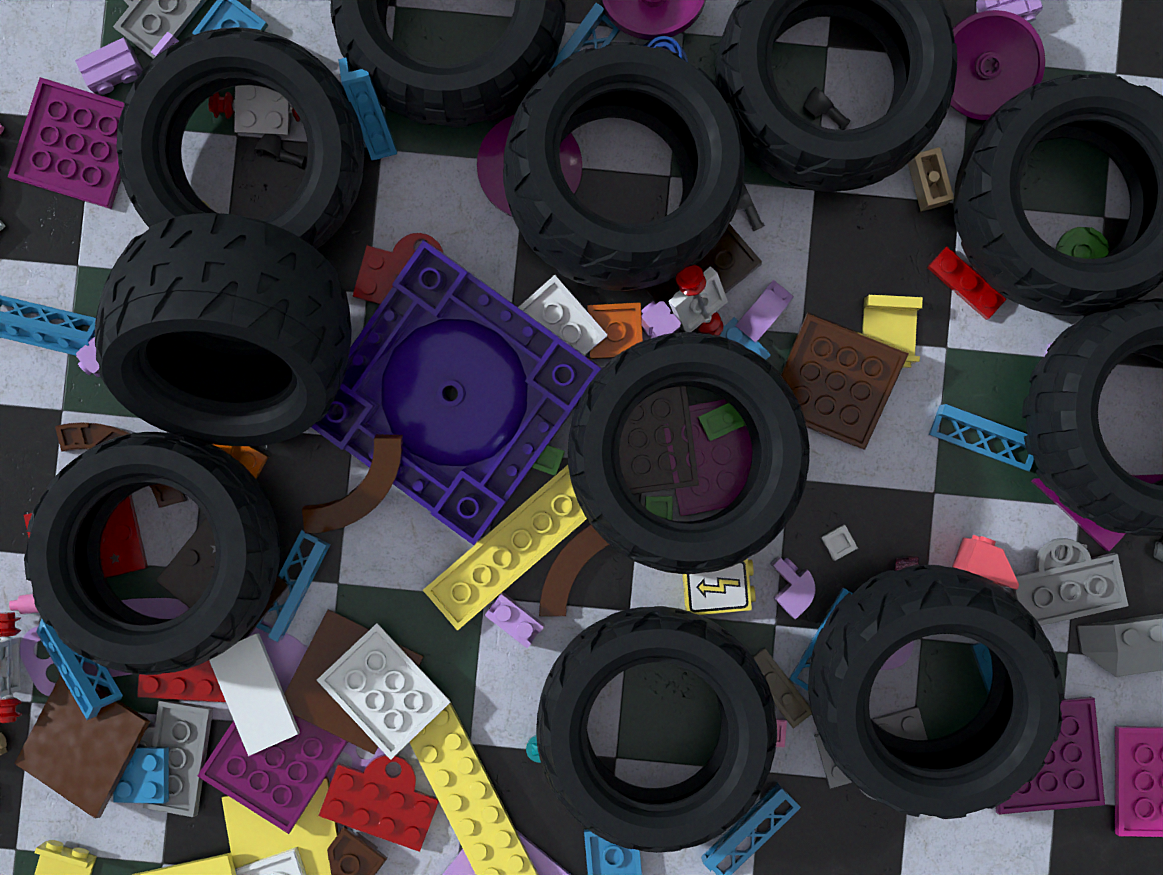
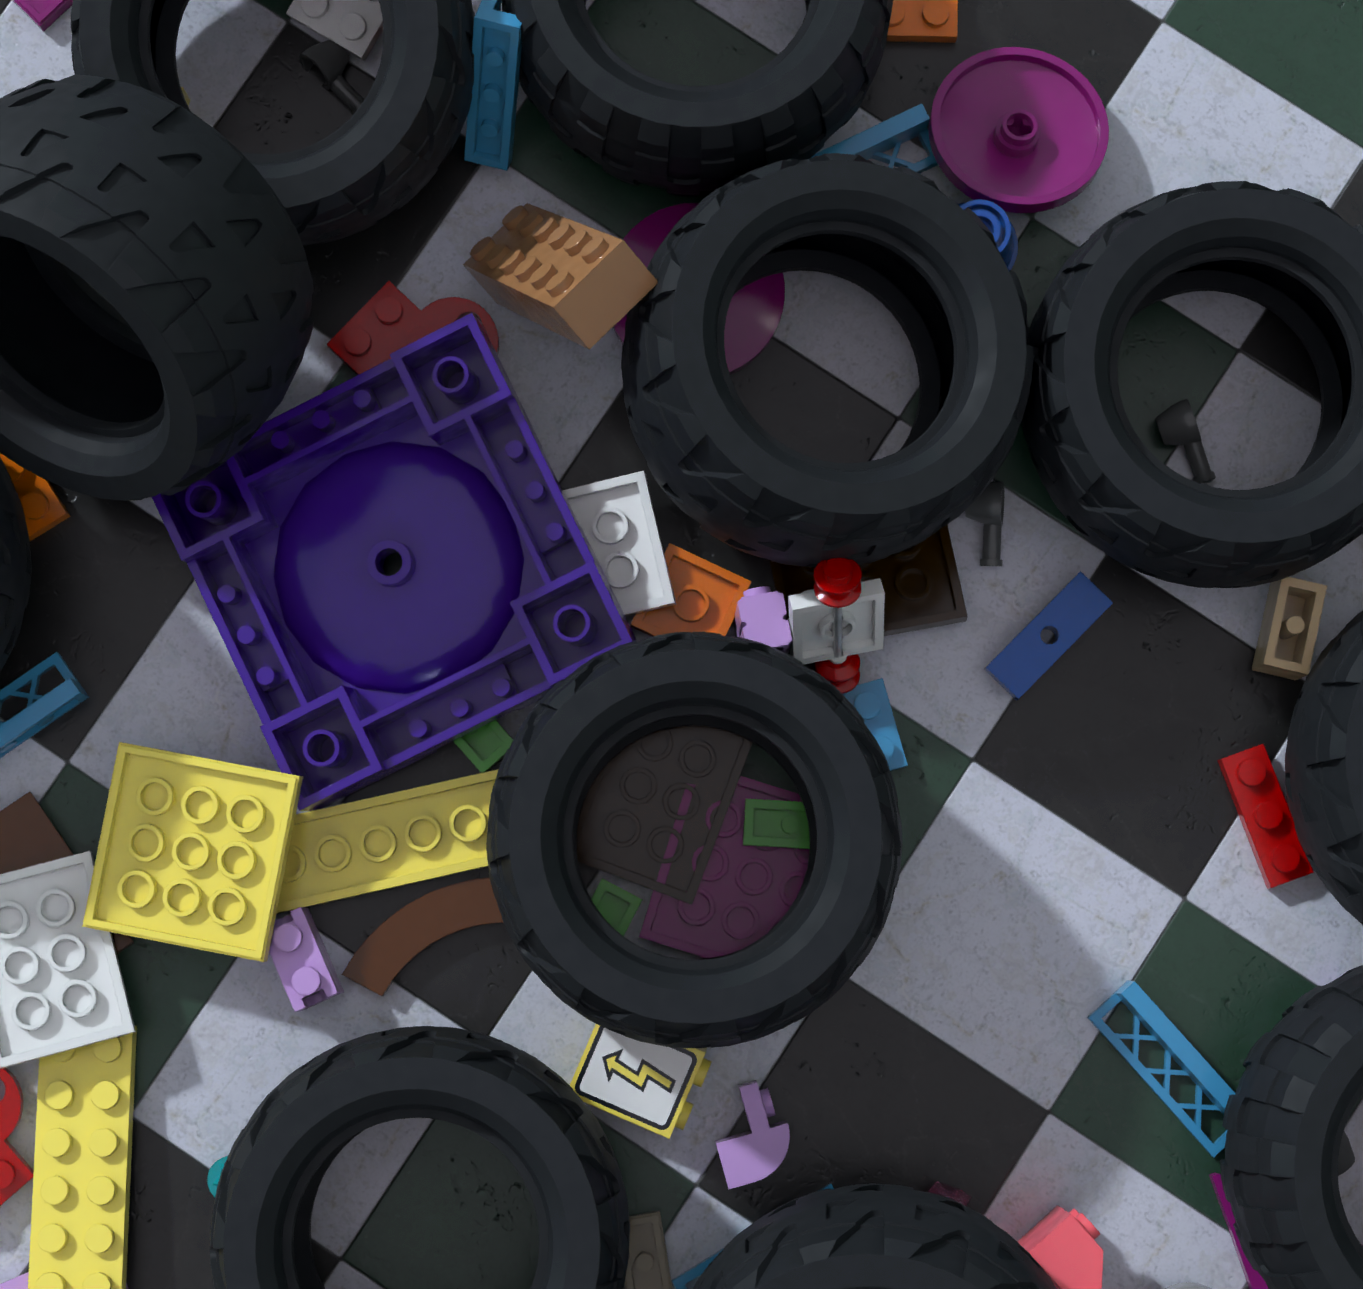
camera: 25 degrees right, 5 degrees down
(365, 496) = (180, 649): reddish brown tile -> none
(430, 595) = (192, 851): none -> light yellow tile
(459, 195) = (560, 273): none -> medium nougat brick
(764, 311) = (932, 693): lavender brick -> none
(811, 234) = (1067, 617): none -> blue tile
(839, 542) = (860, 1109): white tile -> none
(841, 379) = (992, 858): reddish brown tile -> none
(893, 322) = (1110, 825): light yellow panel -> none

